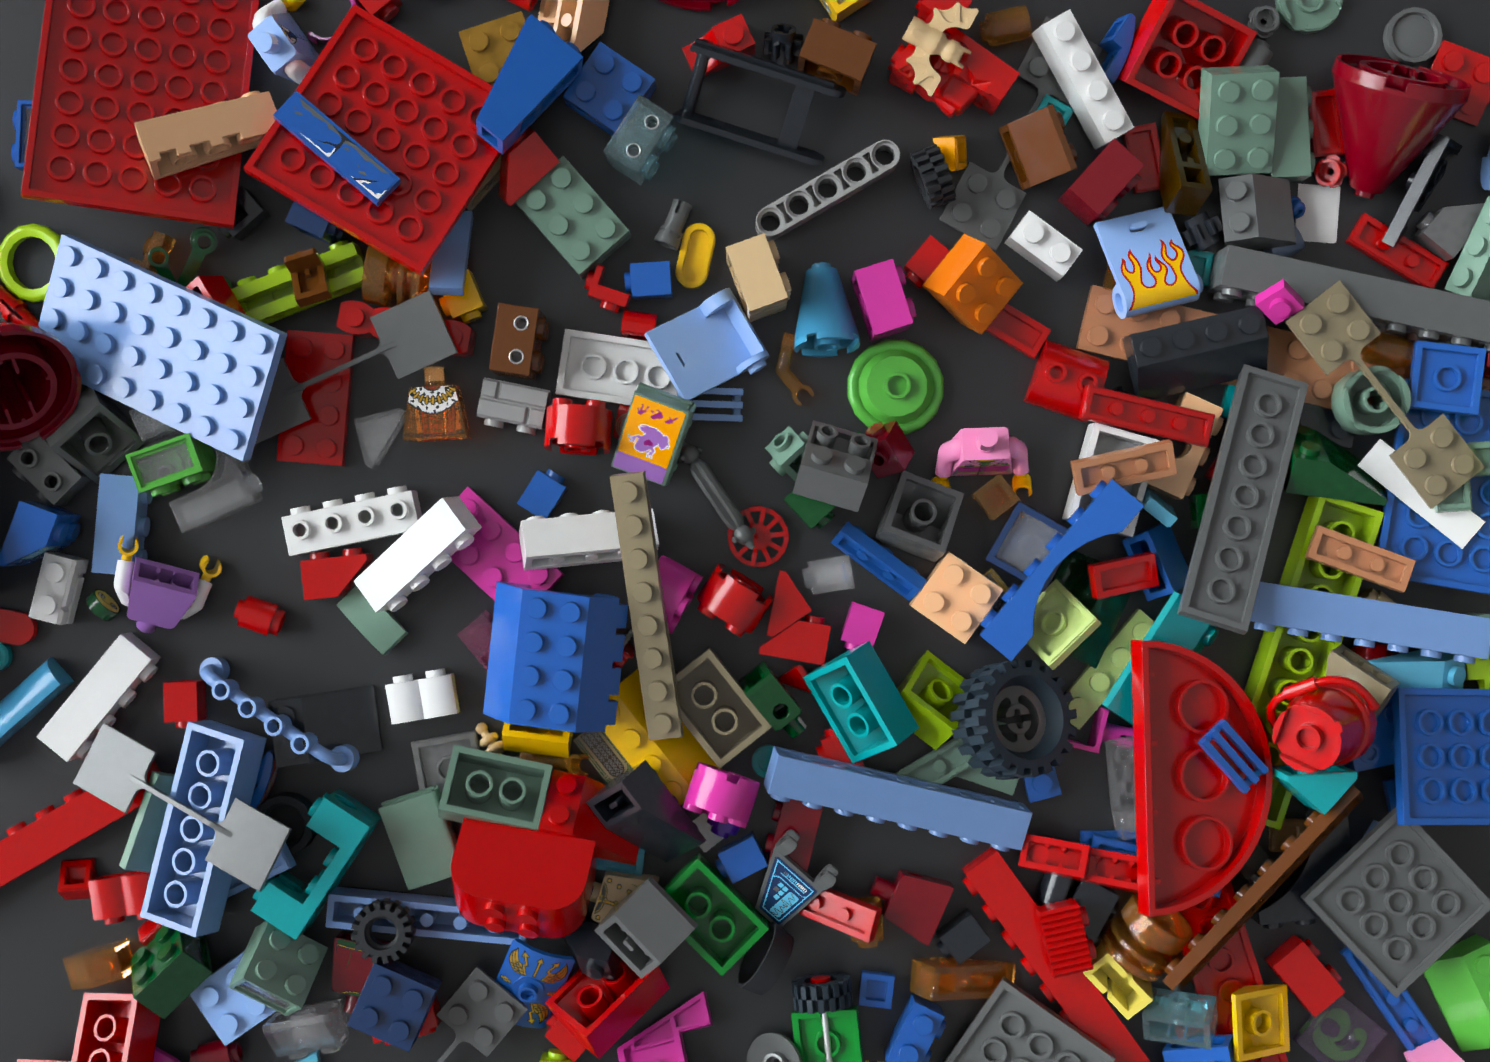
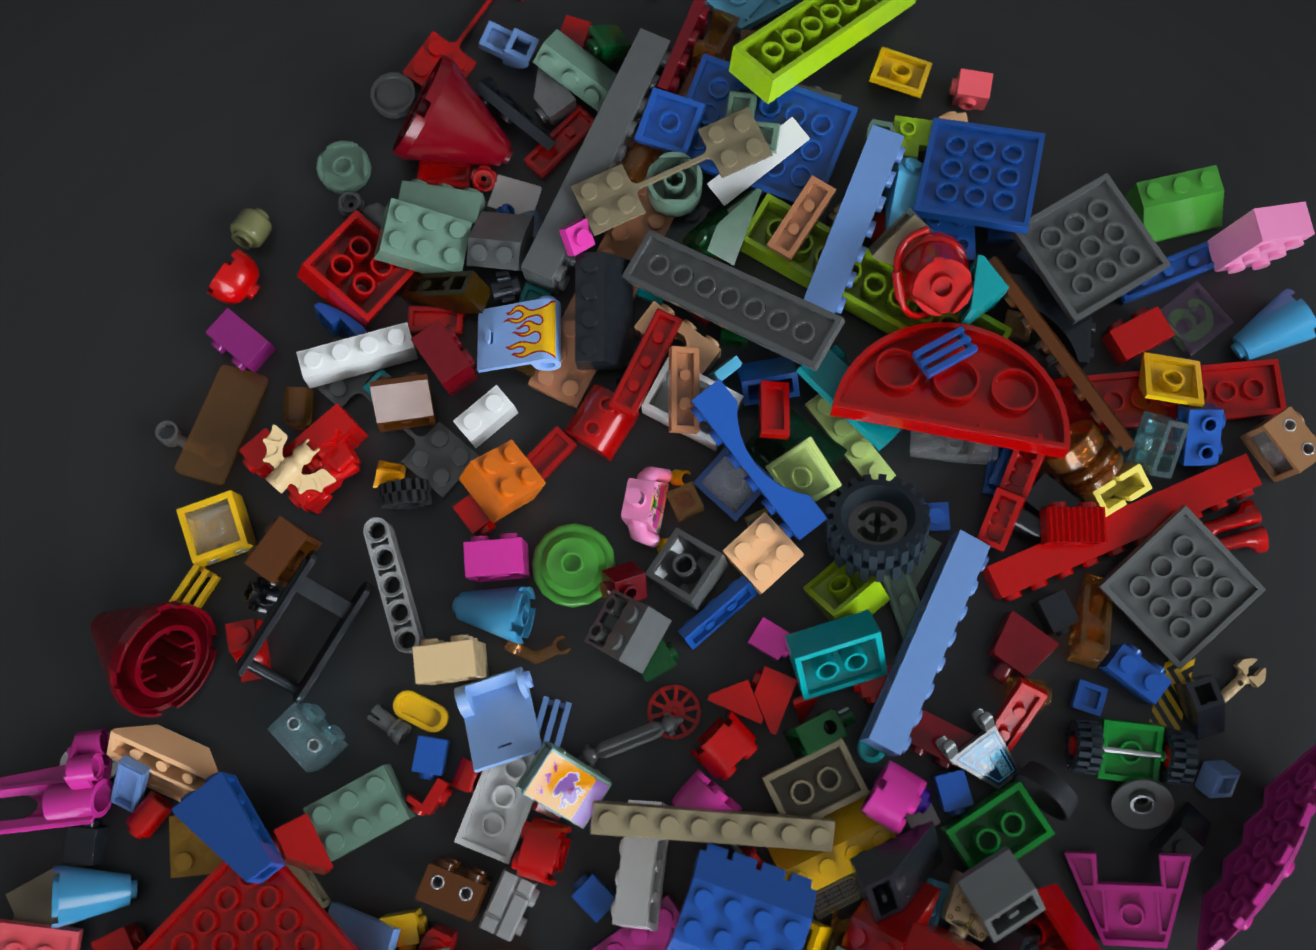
camera: 70 degrees left, 10 degrees down
(608, 88) = (256, 755): blue piece -> none
(787, 452) = (606, 669): sand green brick -> none
(829, 574) = (720, 657): clear slope -> none
(1101, 732) = (901, 457): dark pink bracket -> none

